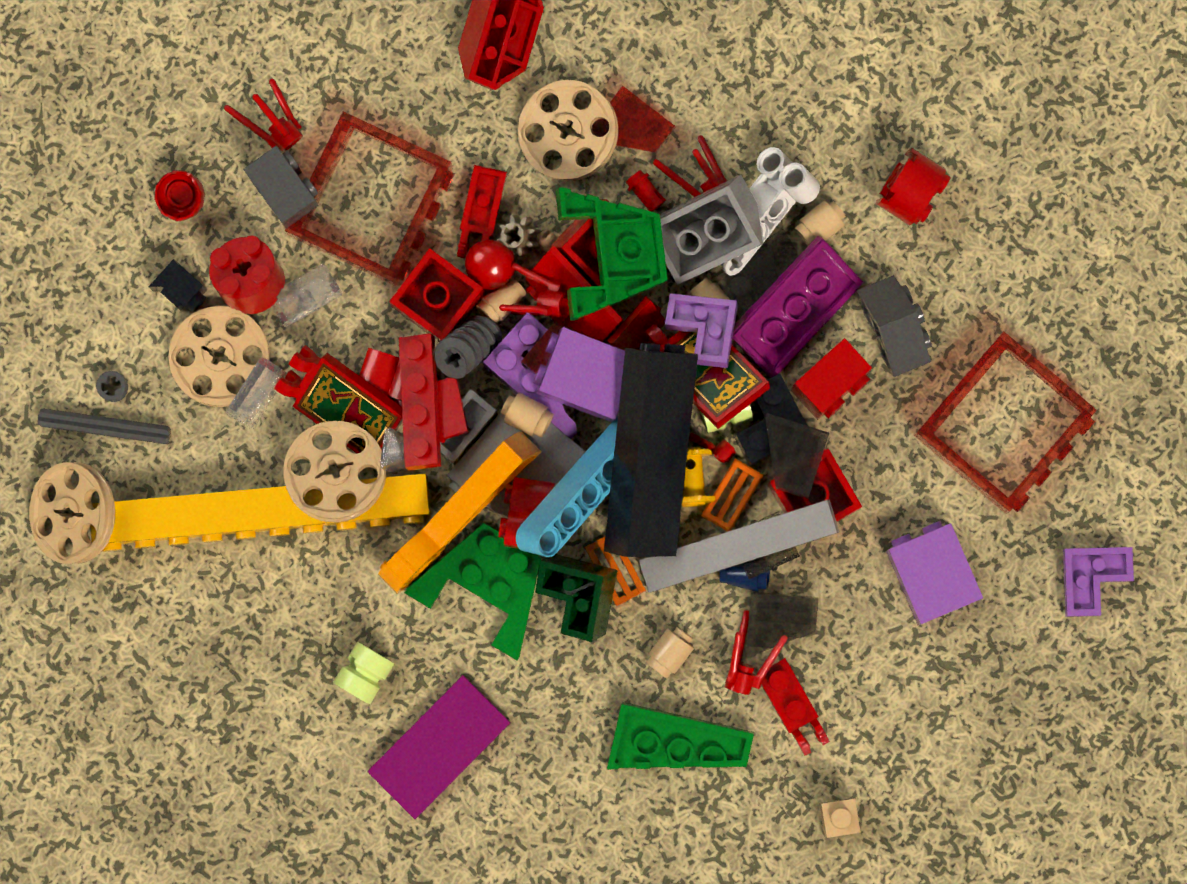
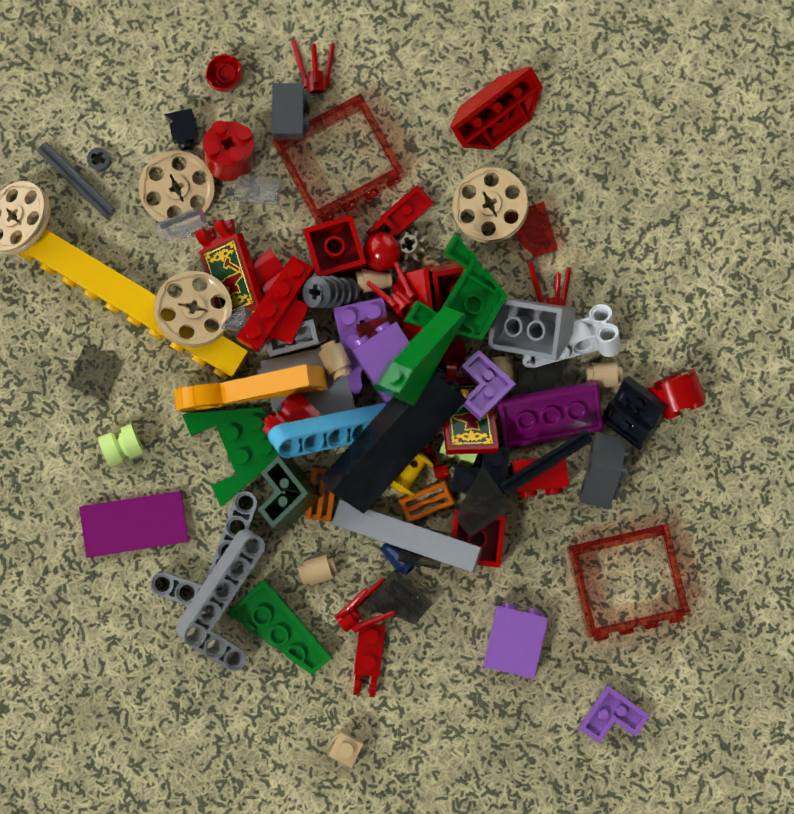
camera: 25 degrees right, 0 degrees up
(277, 617) = (95, 373): none -> clear smoke piece
(560, 720) = (177, 583): none -> light grey beam
(593, 758) = (220, 600): none -> light grey beam
(616, 358) = (414, 364): none -> green wedge
(645, 191) = (510, 276): red pin -> none
(830, 359) = (546, 462): none -> black axle
(883, 240) = (634, 412): none -> black slope

